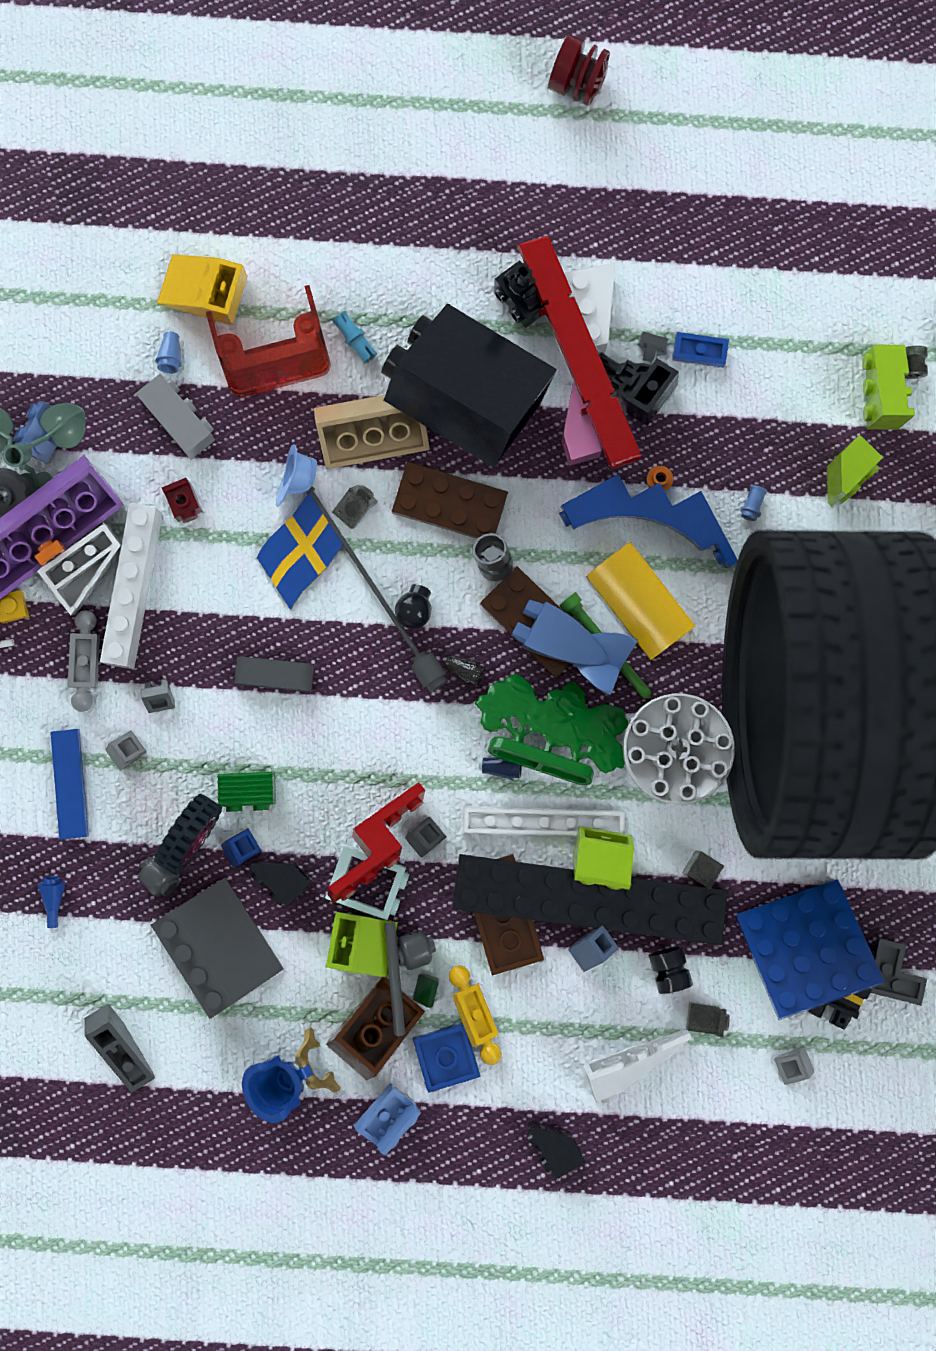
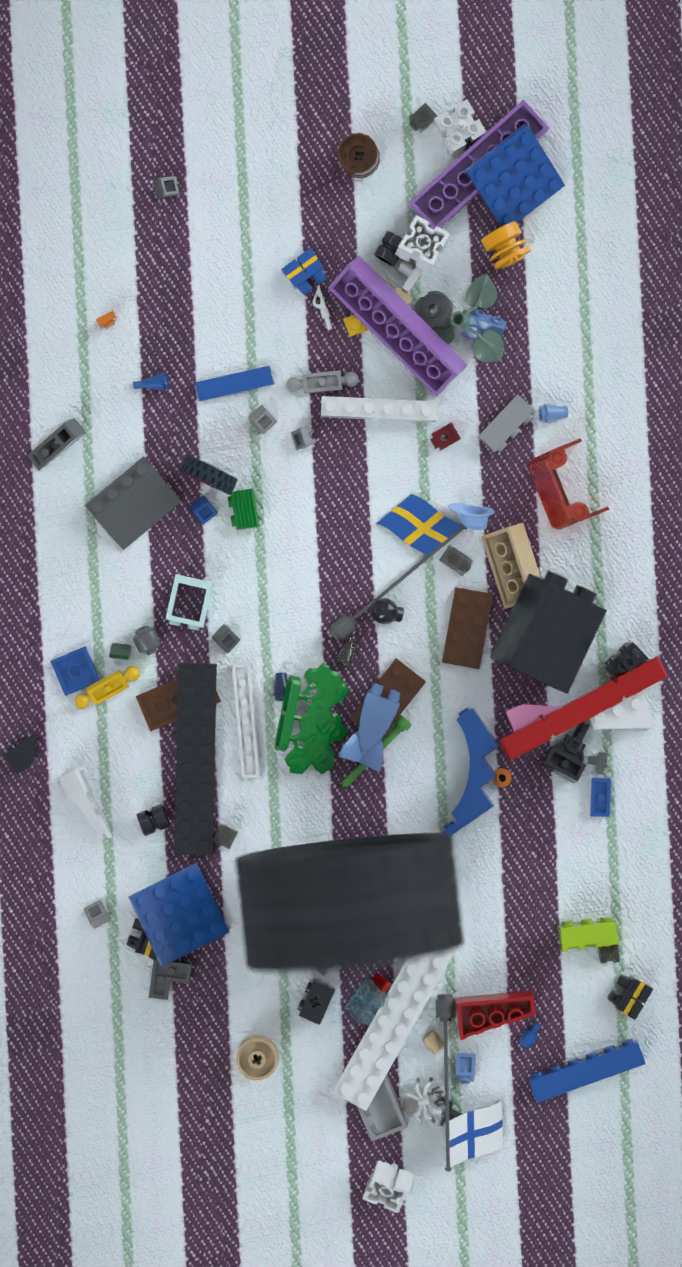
camera: 90 degrees right, 5 degrees up
(49, 551) = (394, 351): orange plate -> none
(81, 567) = (388, 372): white wedge -> none
(157, 879) = (176, 454): dark grey head -> none
(203, 285) = (603, 430): yellow slope -> none
(274, 674) = (328, 517): dark grey beam -> none
(275, 1085) = (44, 556): blue helmet -> none
(282, 878) = (185, 542): black slope -> none
(354, 337) = (580, 545): medium azure pin -> none
(358, 945) = (146, 603): lime slope -> none
(367, 1034) = (90, 619): reddish brown slope -> none
(377, 843) = (217, 606): red bracket -> none
(388, 1118) = (30, 635): medium blue bracket -> none
(394, 979) = (126, 629): dark grey bar -> none
(492, 557) = (428, 663): dark grey wheel -> none
(593, 948) = (161, 764): sand blue brick -> none
(603, 858) = (225, 764): lime slope -> none
(640, 600) = (410, 772): yellow slope -> none
(678, 748) = (306, 808): white bracket -> none
(707, 1019) = (122, 849): clear smoke bracket -> none
(752, 507) = (490, 846): medium blue pin -> none
(851, 470) = (522, 911): lime slope -> none

